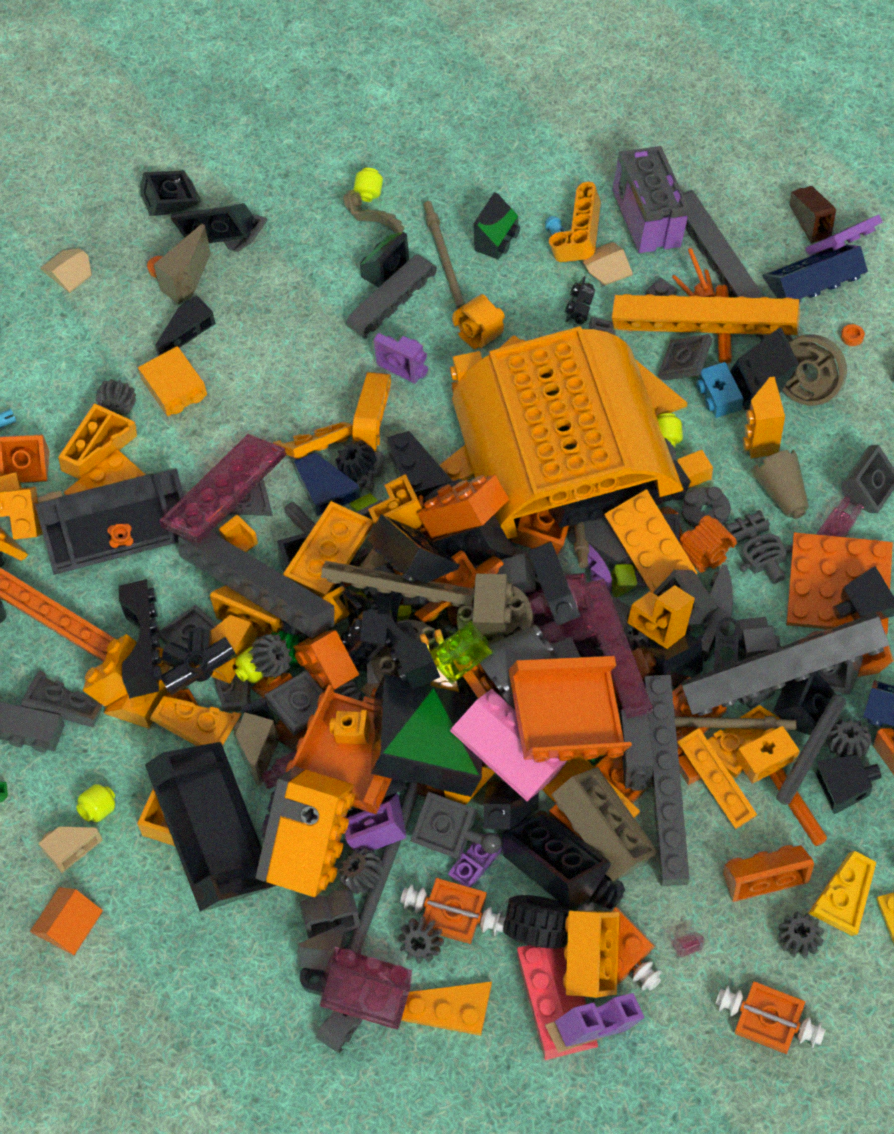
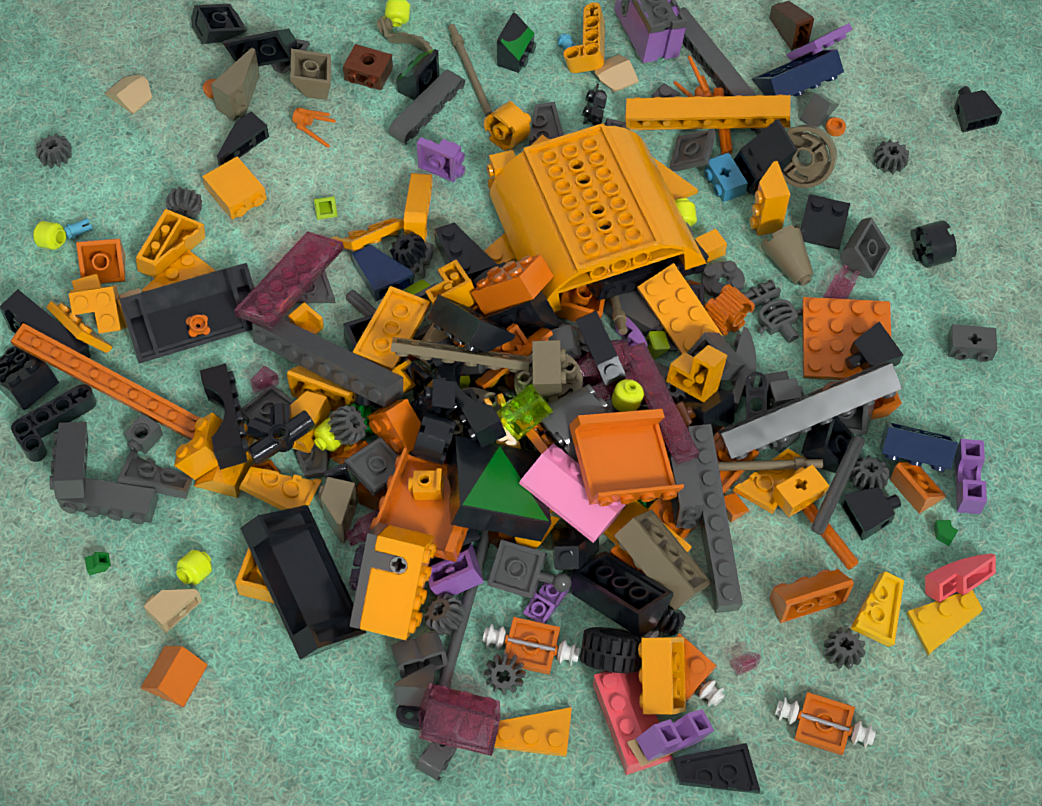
camera: 10 degrees left, 0 degrees up
(53, 645) = (140, 427): none -> dark grey brick
(187, 598) = (263, 379): none -> clear pink slope
(256, 304) = (305, 117): none -> orange plant
(265, 253) = (311, 73): none -> dark tan slope
(270, 407) = (325, 207): none -> lime slope
(329, 248) = (368, 67): none -> copper brick
(361, 676) = (433, 438): none -> black brick
(522, 319) = (545, 122): none -> dark grey wing
(579, 638) = (627, 395): none -> neon yellow head
(647, 1061) = (719, 769): none -> black wing
(717, 778) = (757, 514): light orange plate -> none
(827, 446) = (824, 221): none -> black slope
(834, 315) = (818, 110): none -> dark grey slope

